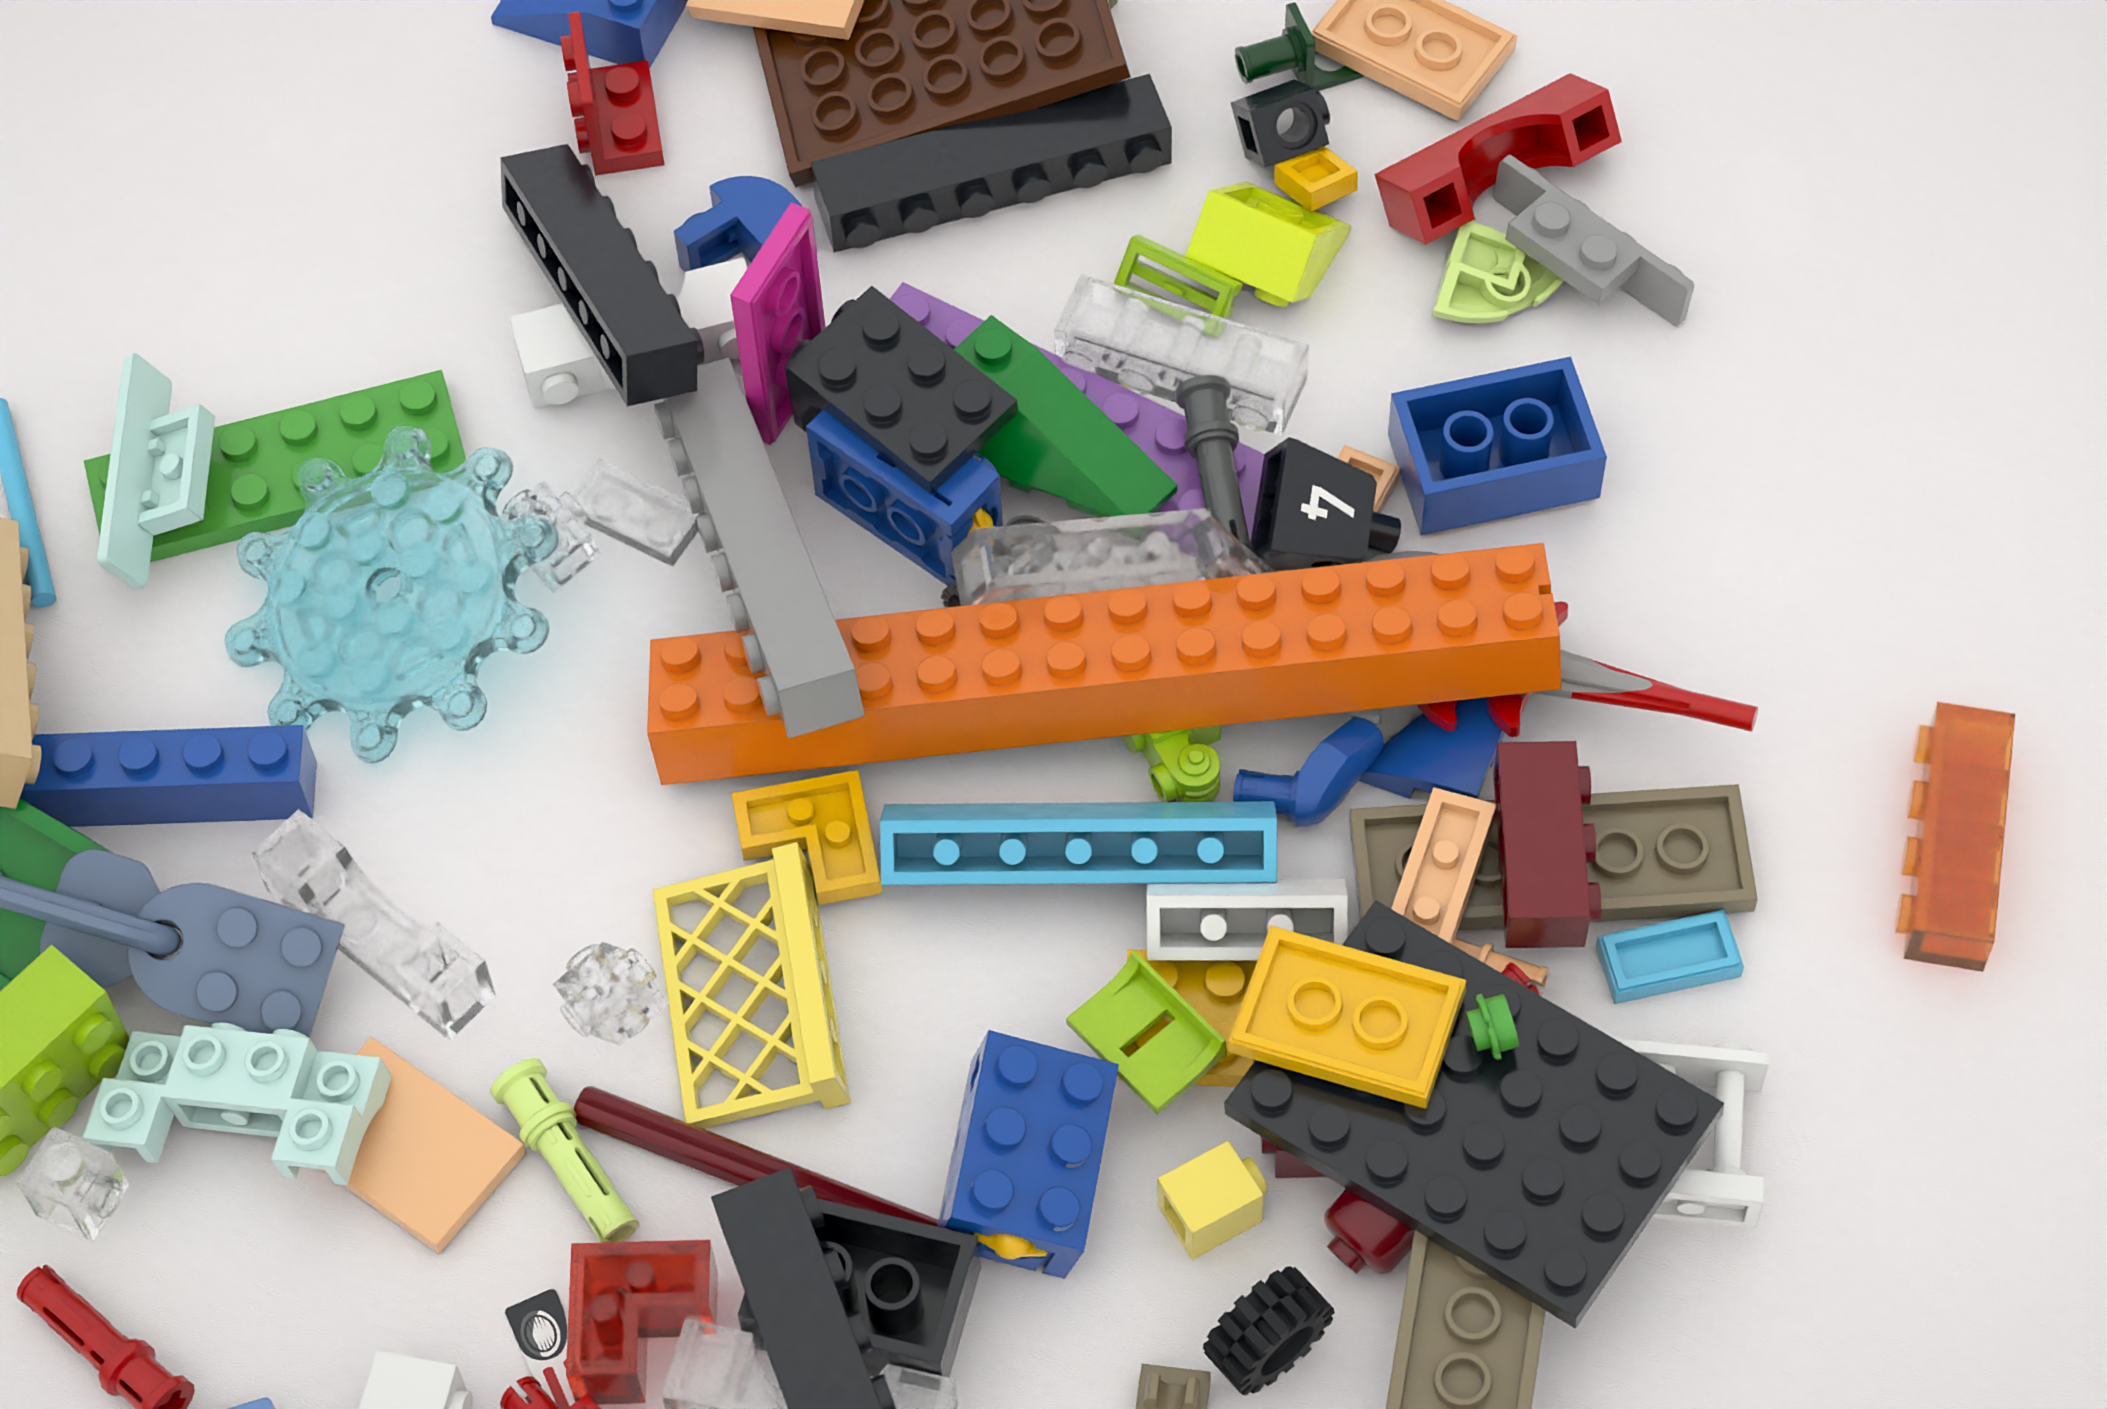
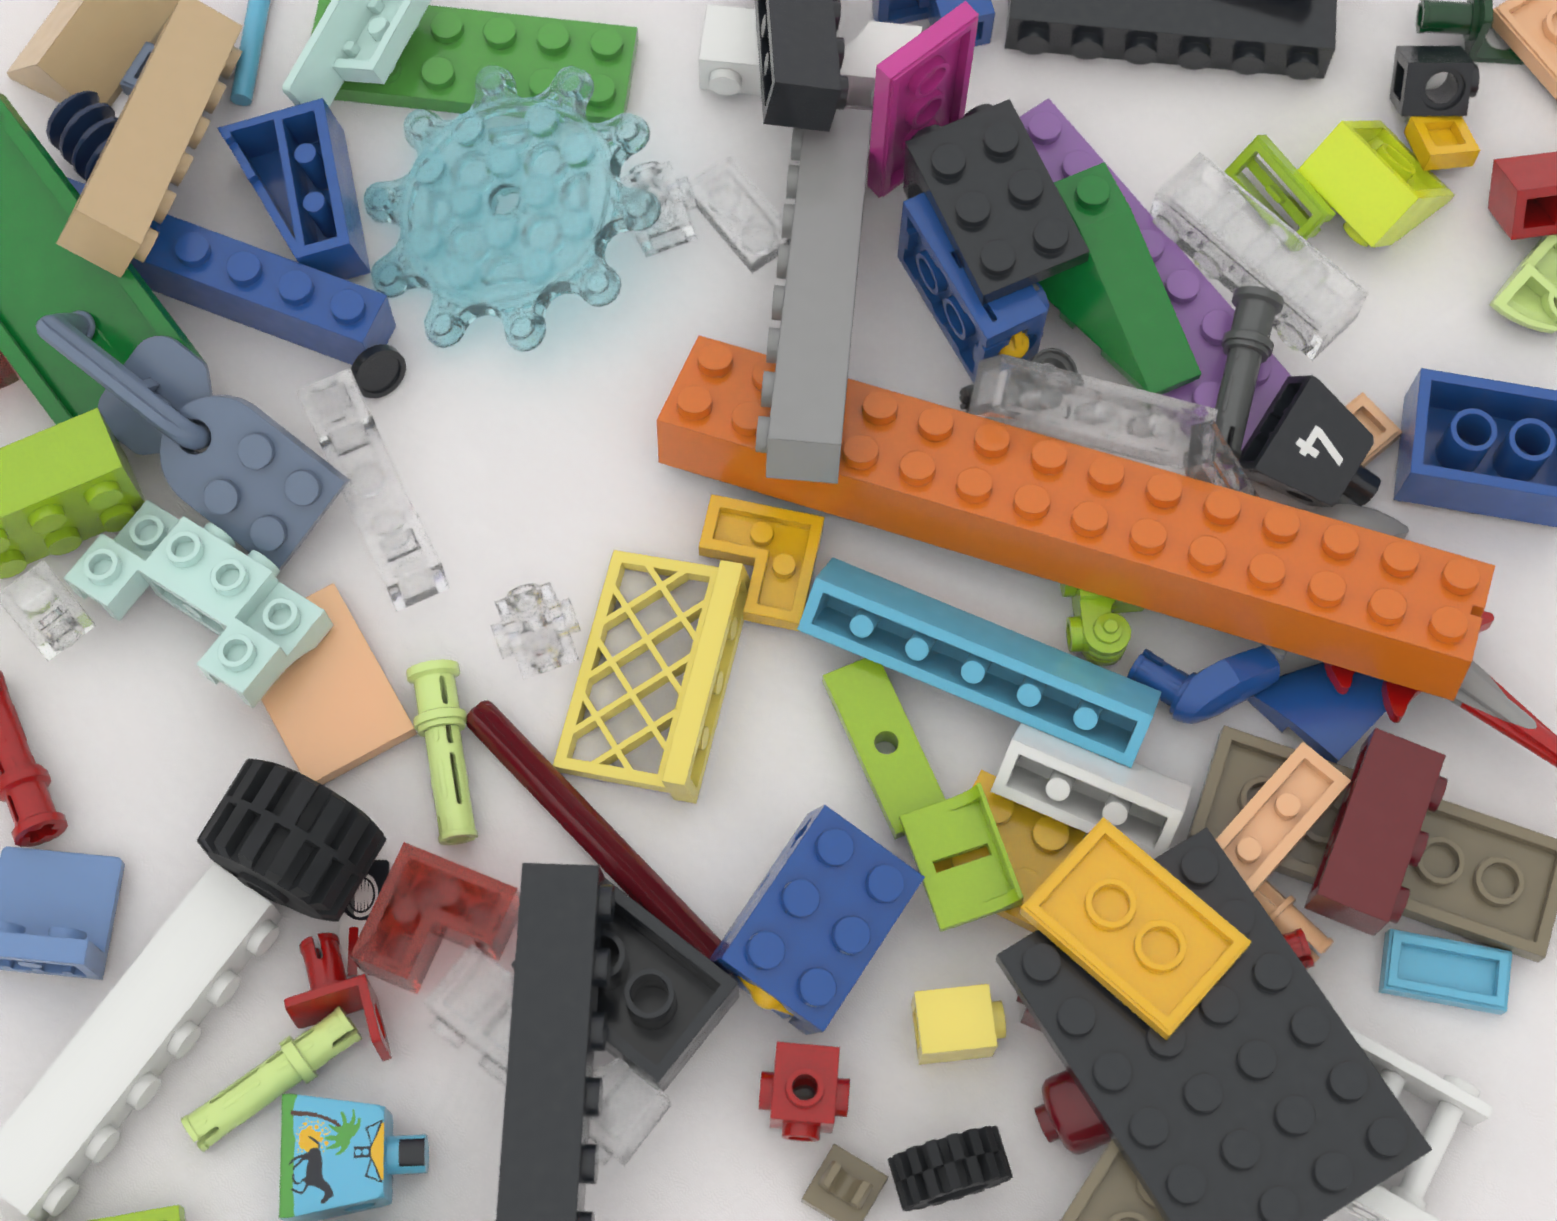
camera: 20 degrees right, 10 degrees up
(154, 652) = (306, 184): none -> blue wedge
(326, 804) = (378, 370): none -> black piece
(452, 1288) = (292, 839): none -> black wheel
(995, 942) = (875, 715): none -> lime tile
(1089, 1320) = (804, 1068): none -> red brick
(1492, 1025) = (1256, 994): bright green plate -> none

